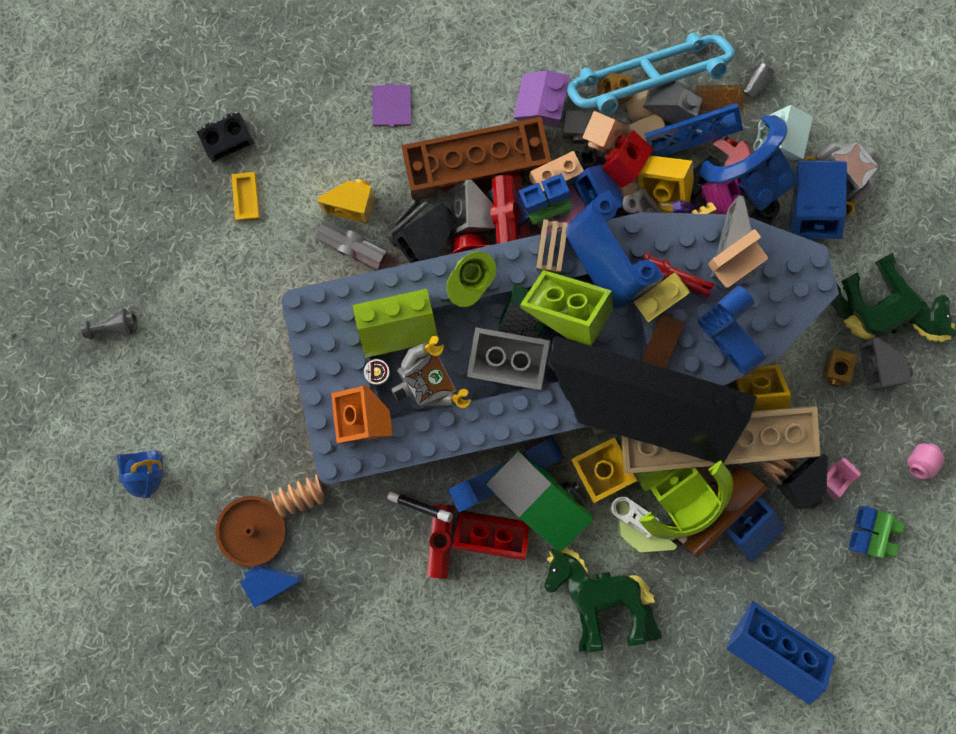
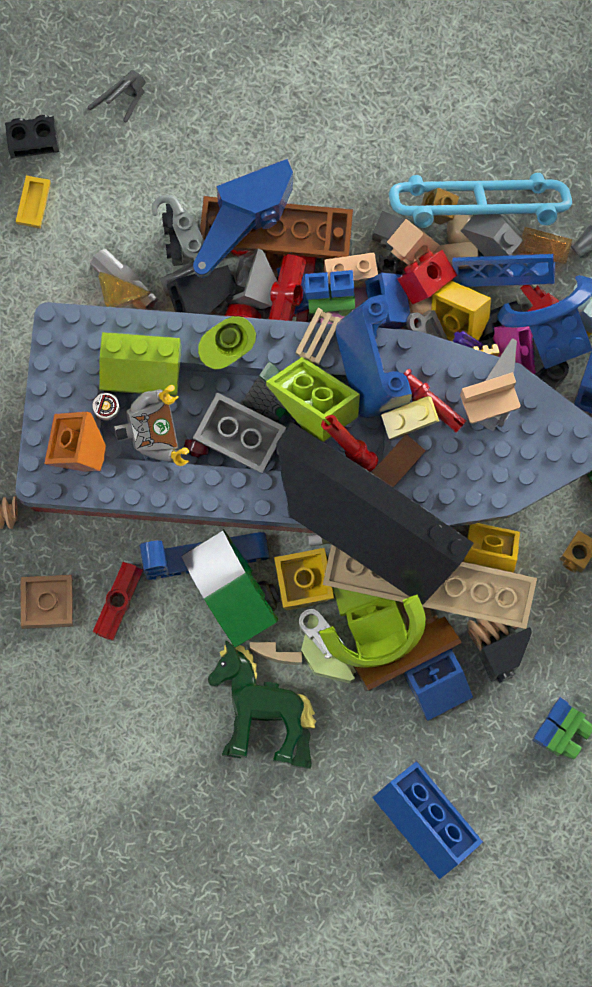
camera: 15 degrees right, 5 degrees down
(297, 62) = (130, 85): none -> dark grey plant
(349, 201) = (135, 236): yellow slope -> none
(352, 257) = (119, 292): none -> clear yellow slope
(375, 560) = (46, 601): none -> medium nougat plate
(380, 183) = (173, 249): none -> black plate
(391, 105) = (209, 155): medium lavender piece -> none
(420, 506) = (108, 559): black bar -> none
(442, 143) = (244, 204): none -> blue slope
(469, 384) = (196, 448): none -> dark red tile
(491, 535) = (170, 612): red slope -> none
(542, 96) = (364, 191): medium lavender slope -> none
(591, 544) = (268, 651): none -> tan slope
(621, 342) = (354, 449): none -> red pin
(728, 335) = (457, 455): blue beam -> none
(840, 477) = (543, 663): bright pink bracket -> none

